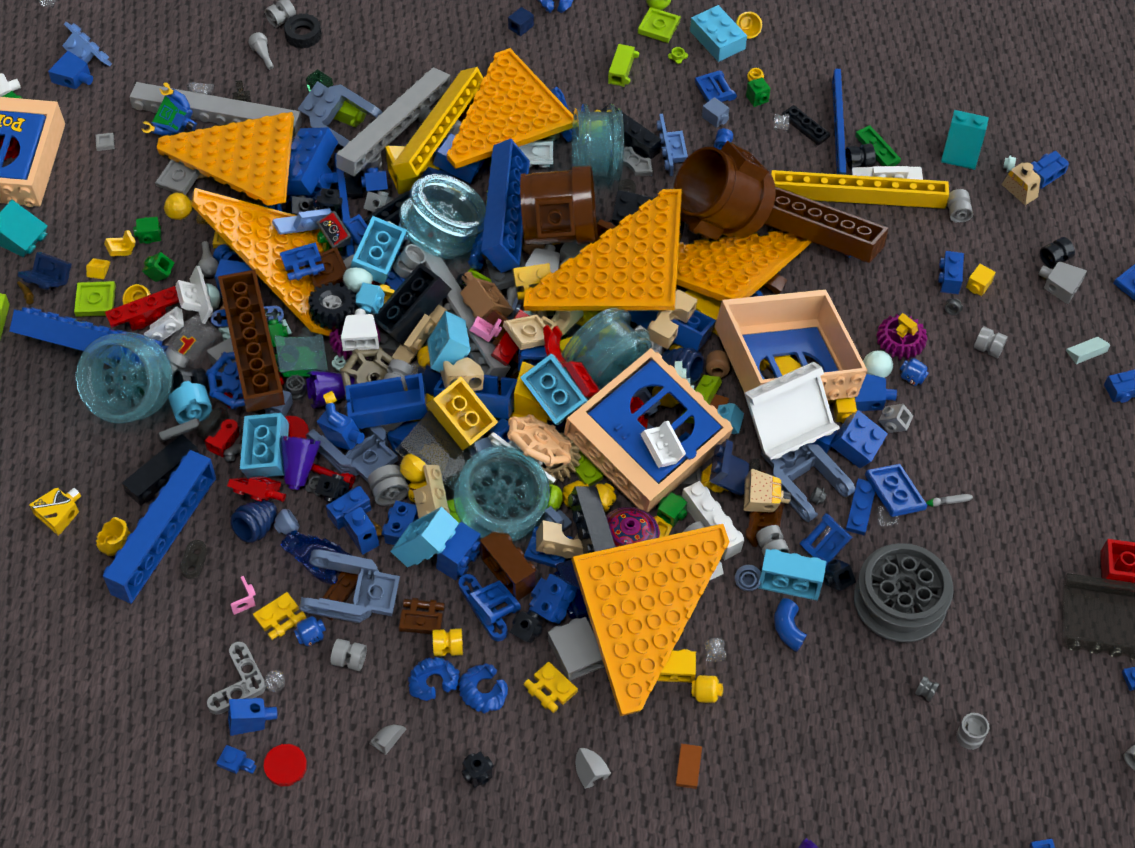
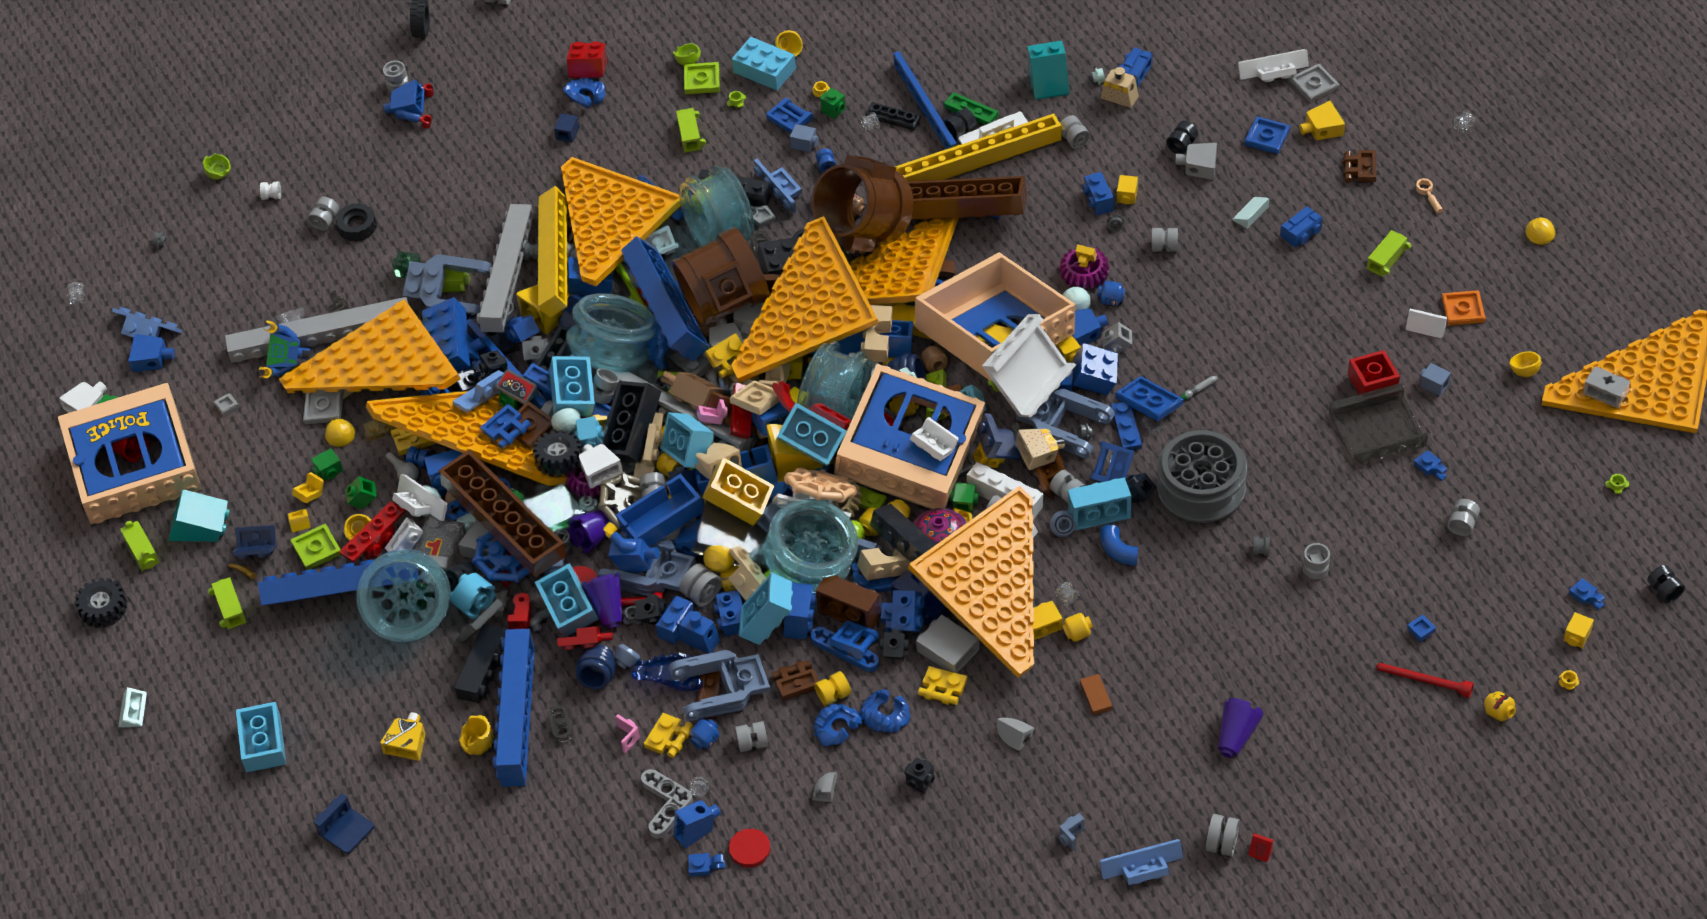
camera: 20 degrees left, 5 degrees down
(258, 43) = (319, 251): light grey piece -> none

